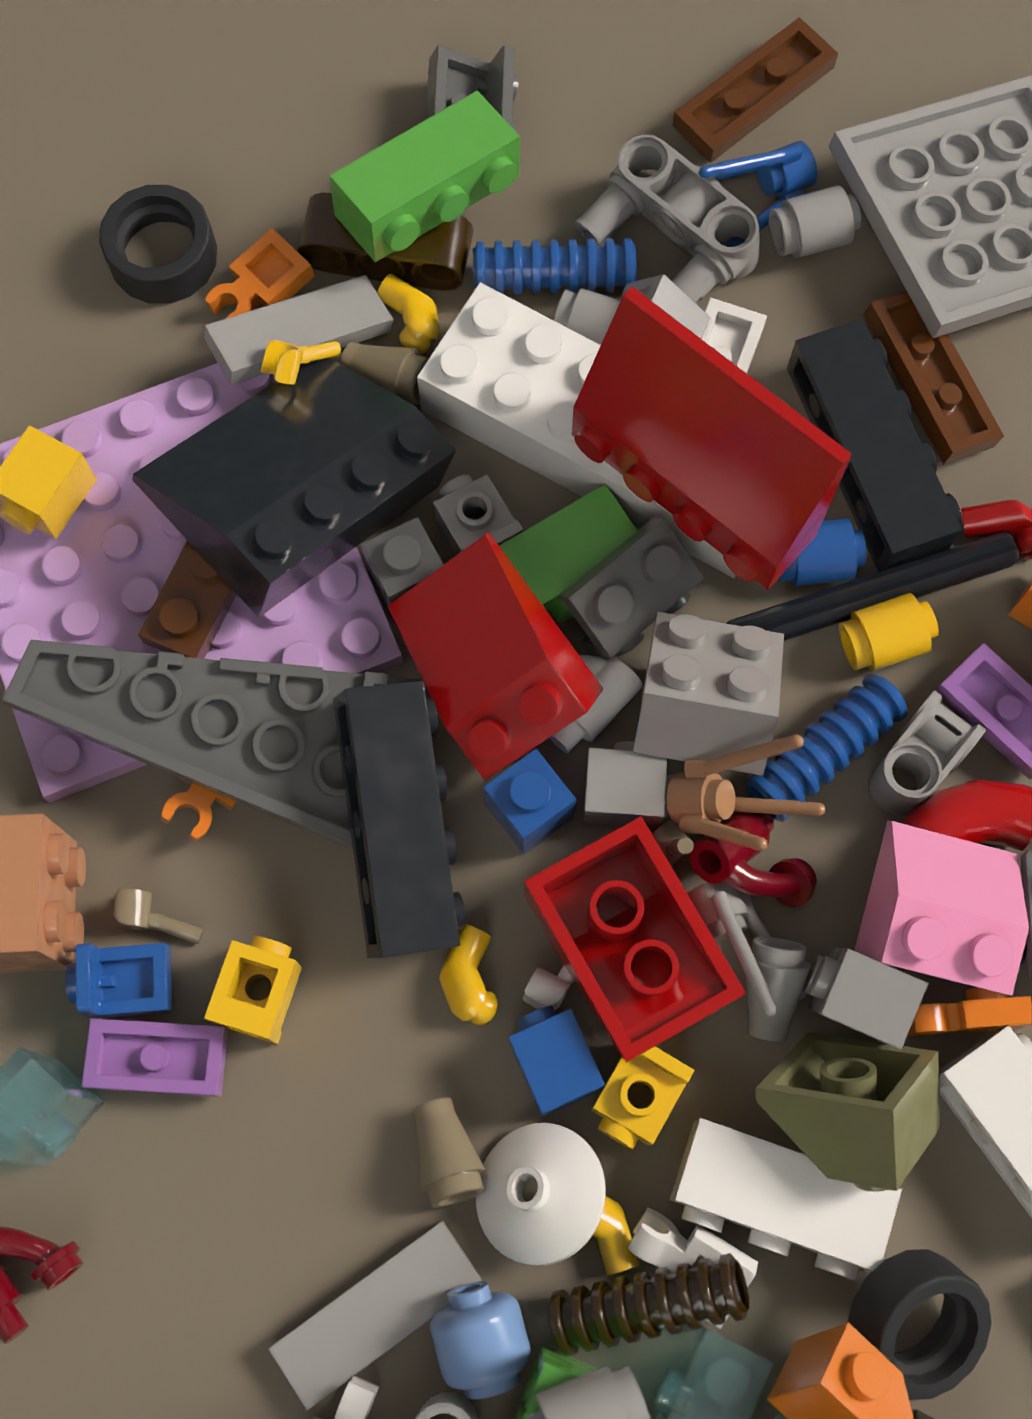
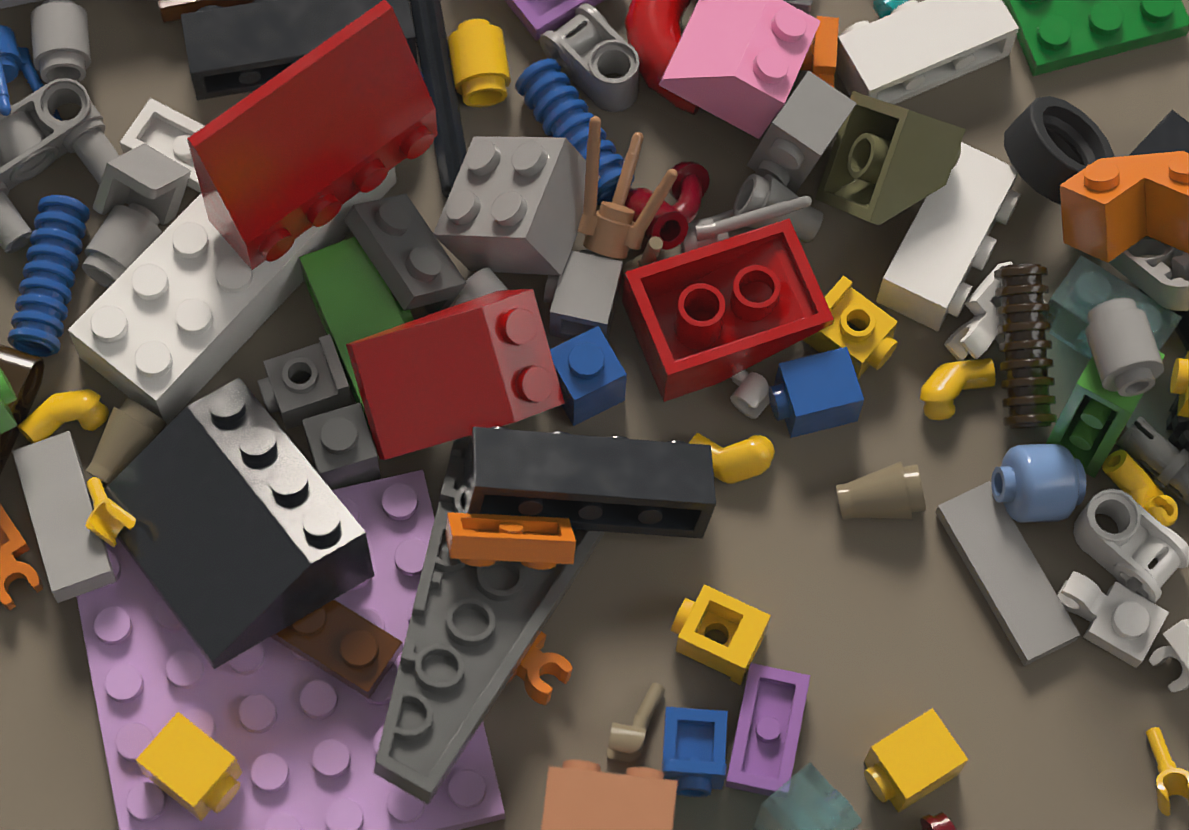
camera: 85 degrees left, 5 degrees down
(131, 1225) = (913, 761): none -> yellow brick
(308, 742) = (490, 538): none -> orange plate
(566, 1201) = (930, 390): white dish -> none

